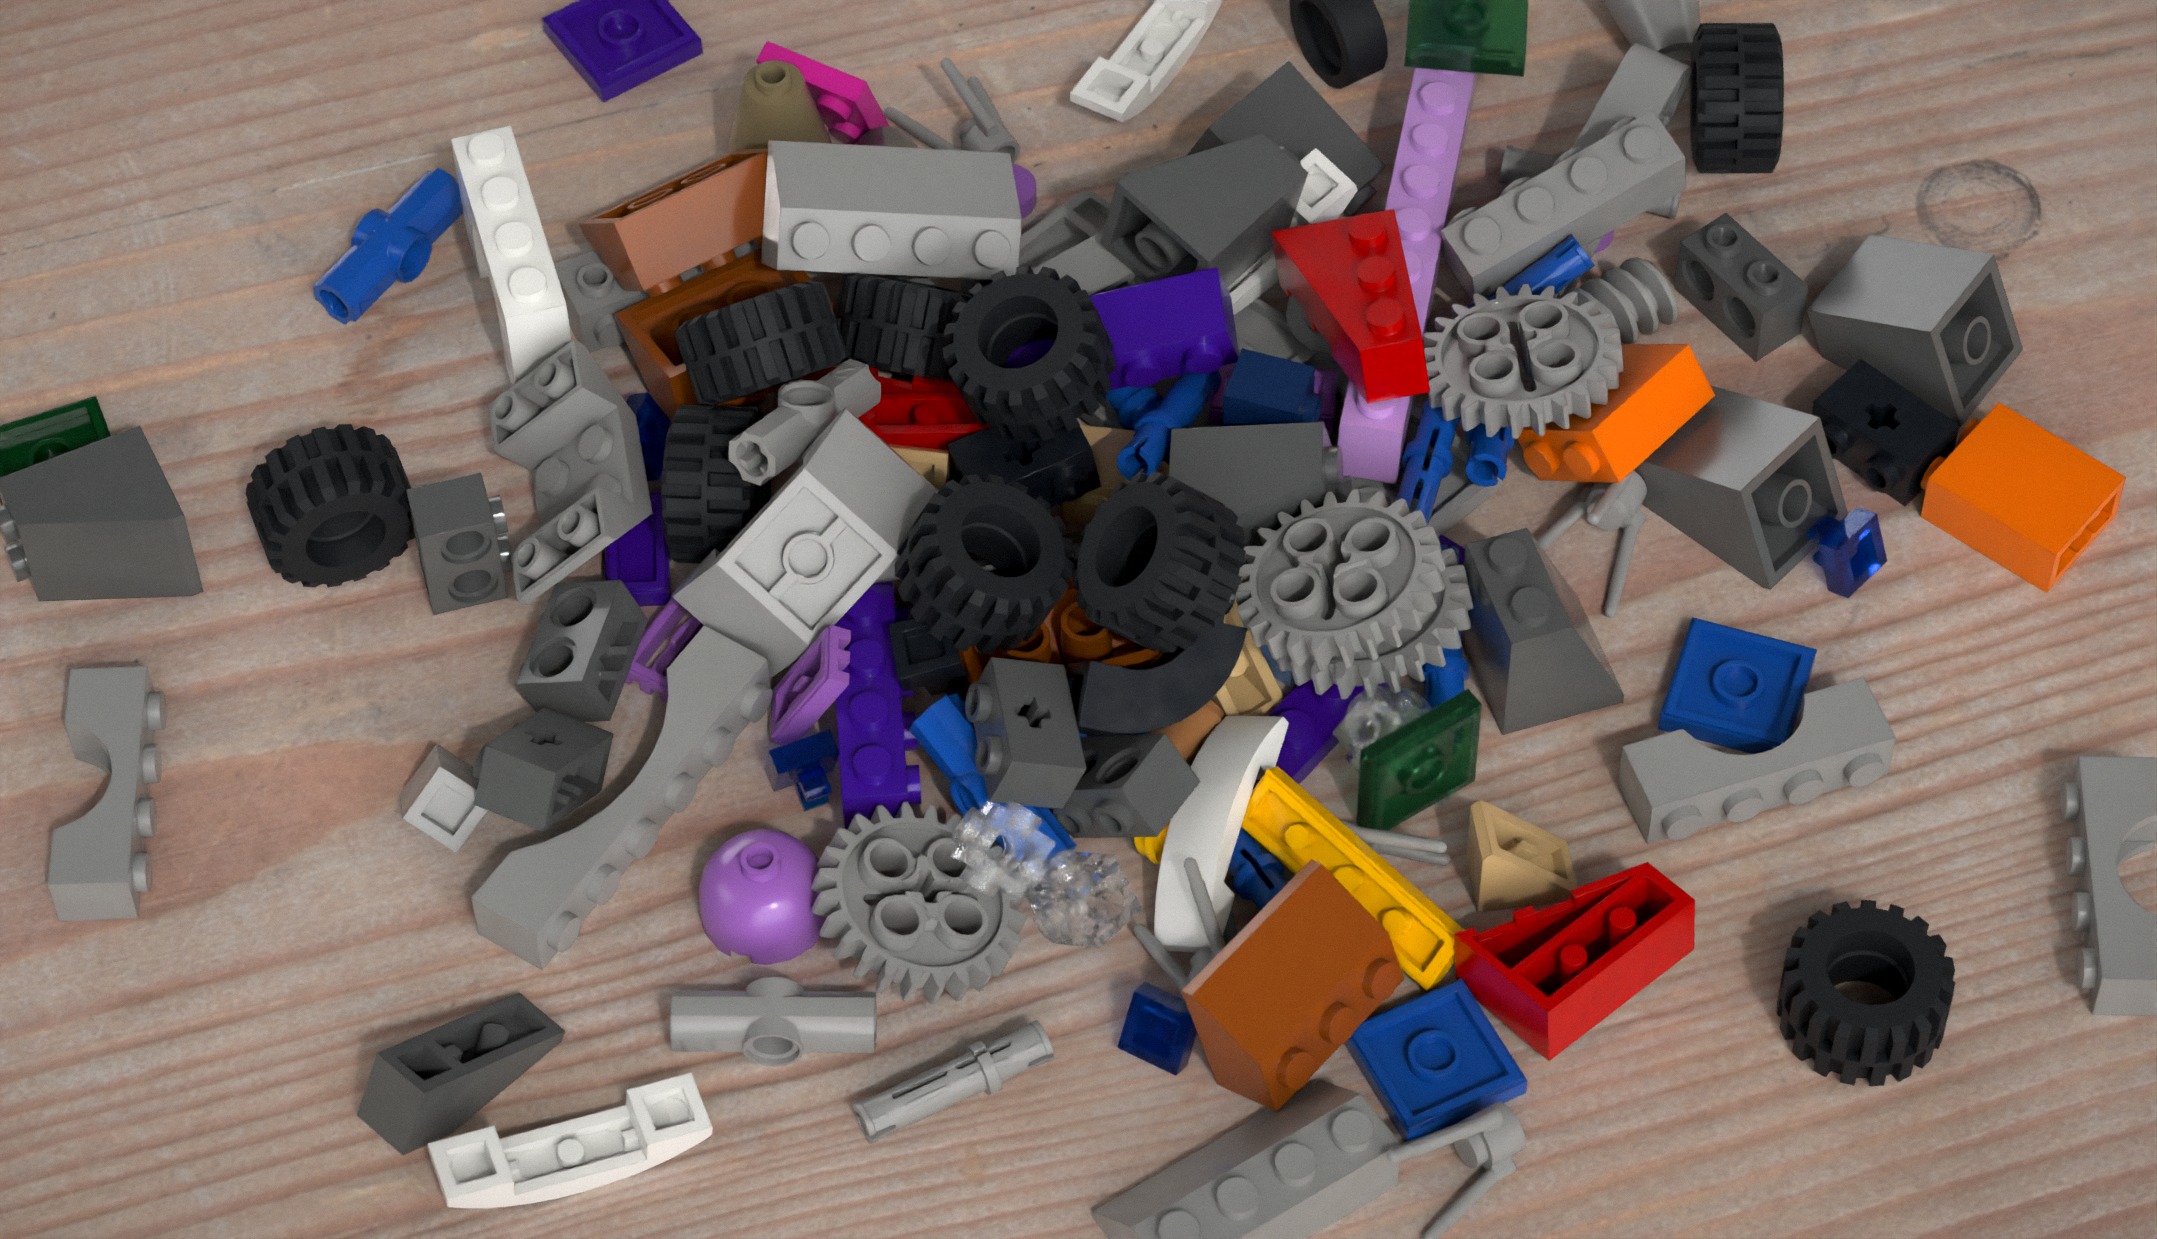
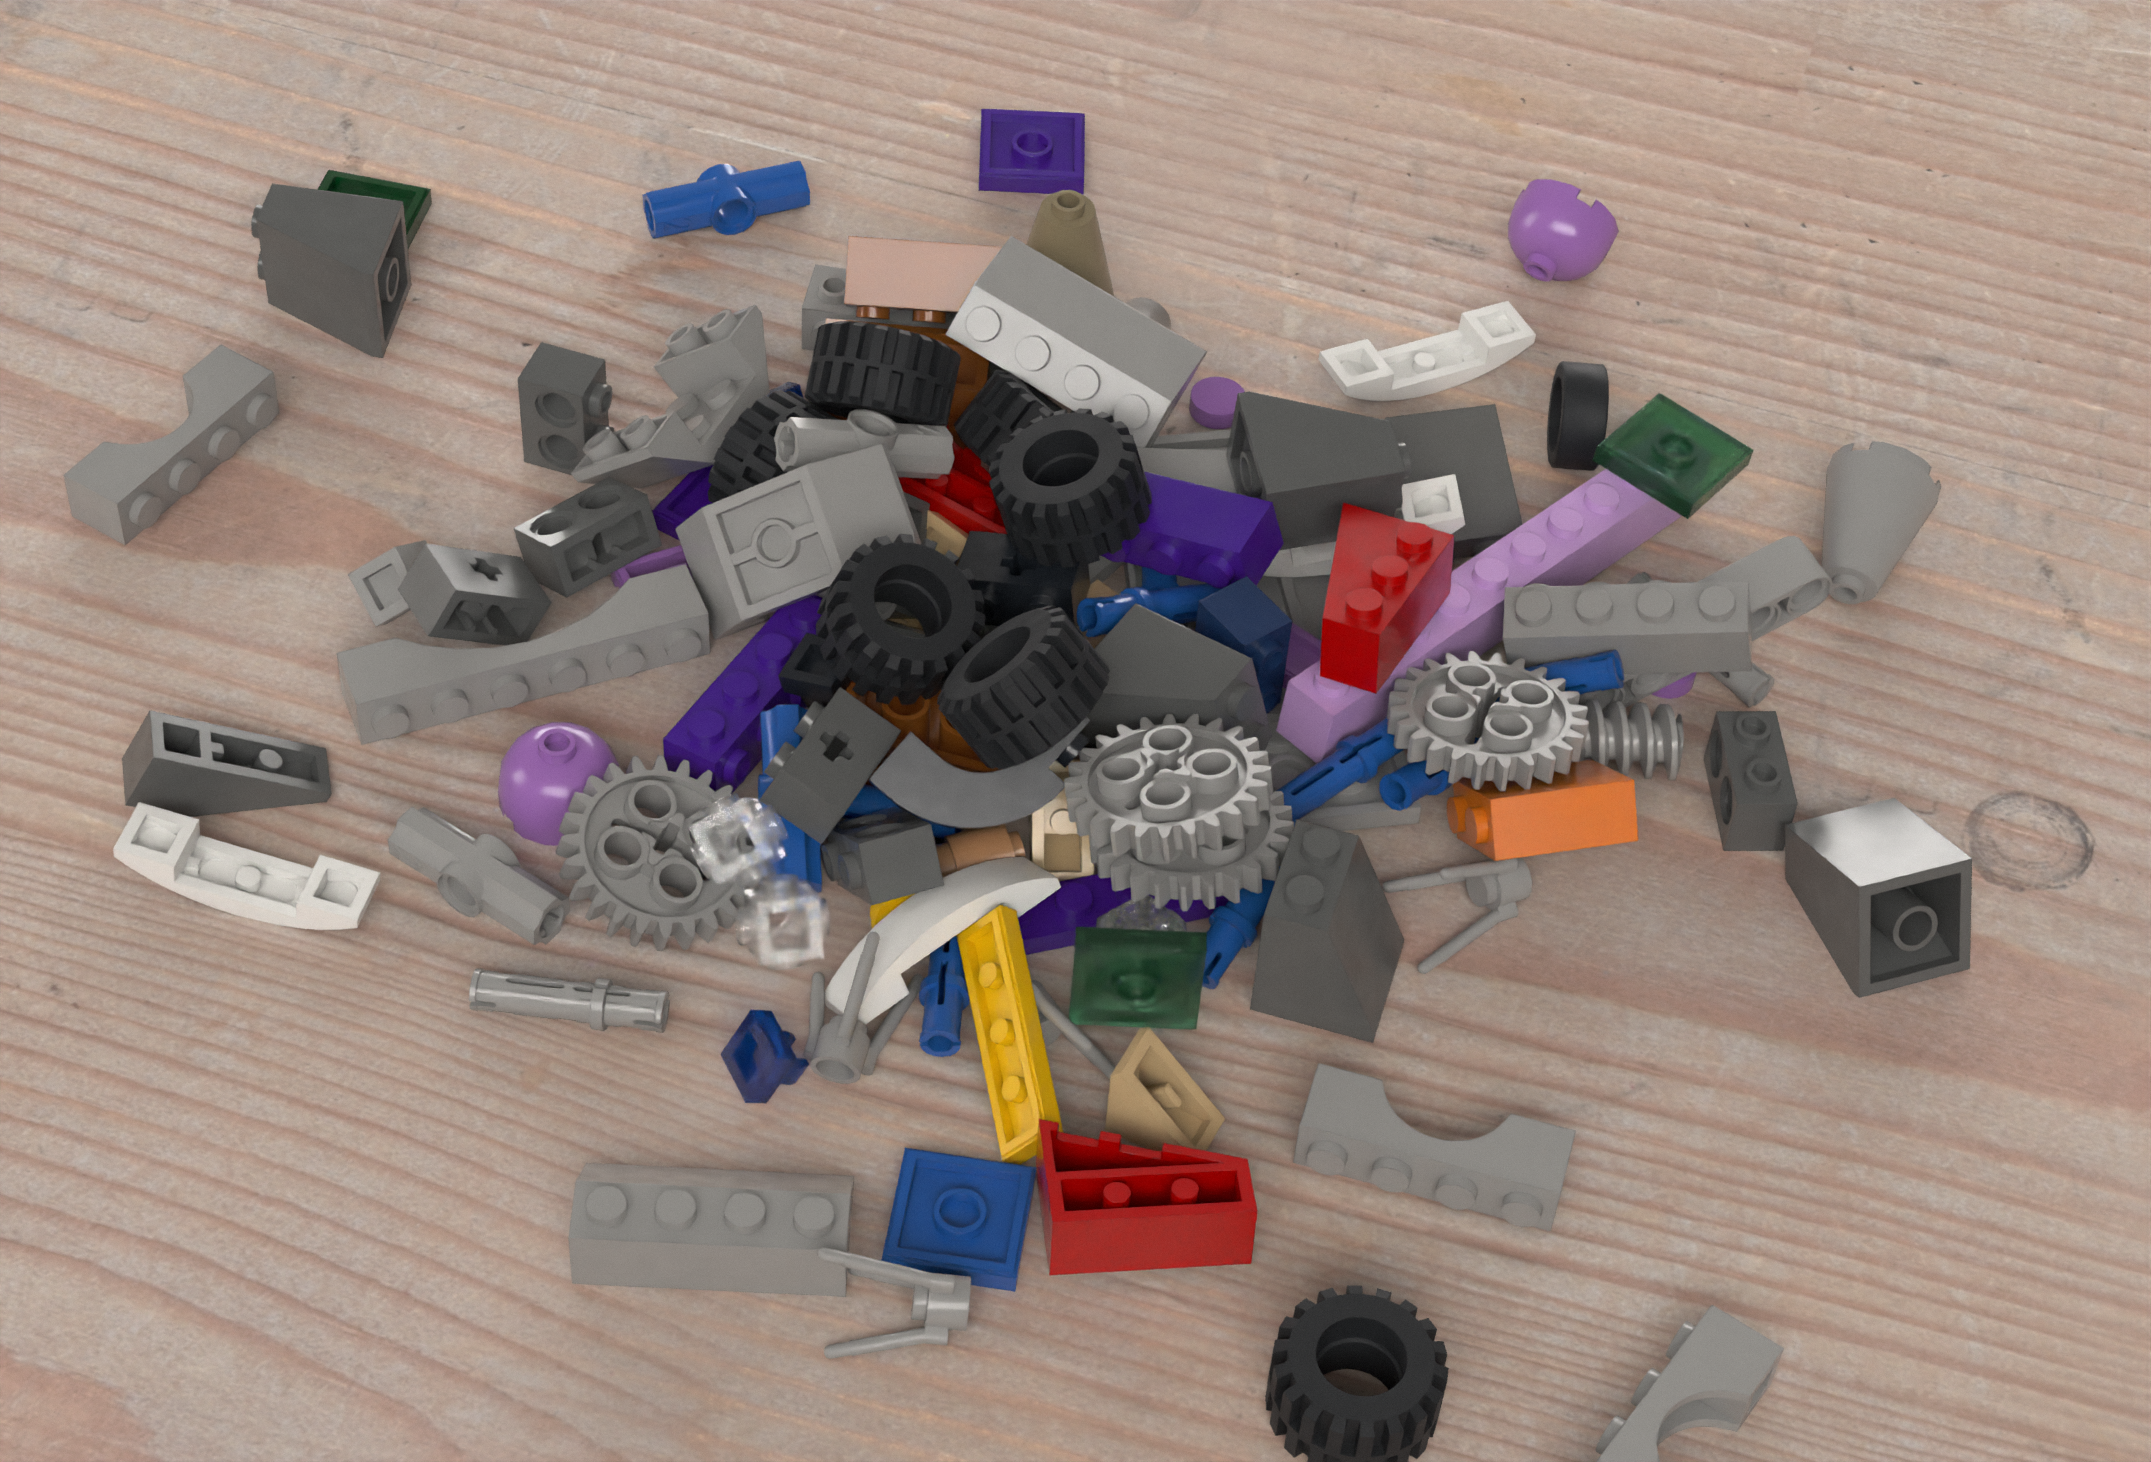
camera: 30 degrees right, 5 degrees down
(331, 506) = (489, 328): black tyre -> none
(511, 249) = (790, 221): white arch -> none
(805, 767) = (666, 703): clear blue tile -> none
(810, 686) = (721, 649): medium lavender tile -> none
(841, 99) = (1126, 252): dark pink wing -> none
(980, 133) = (1230, 353): light grey plant -> none
(1291, 988) = (876, 1080): dark orange slope -> none
(1736, 98) = (1862, 631): black tyre -> none
(1736, 687) = (1474, 1080): blue tile -> none
(1746, 483) = (1617, 931): dark grey slope -> none
(1849, 549) = (1664, 1032): clear blue tile -> none
(1883, 431) = (1775, 959): black brick -> none
(2021, 496) = (1857, 1077): orange brick -> none

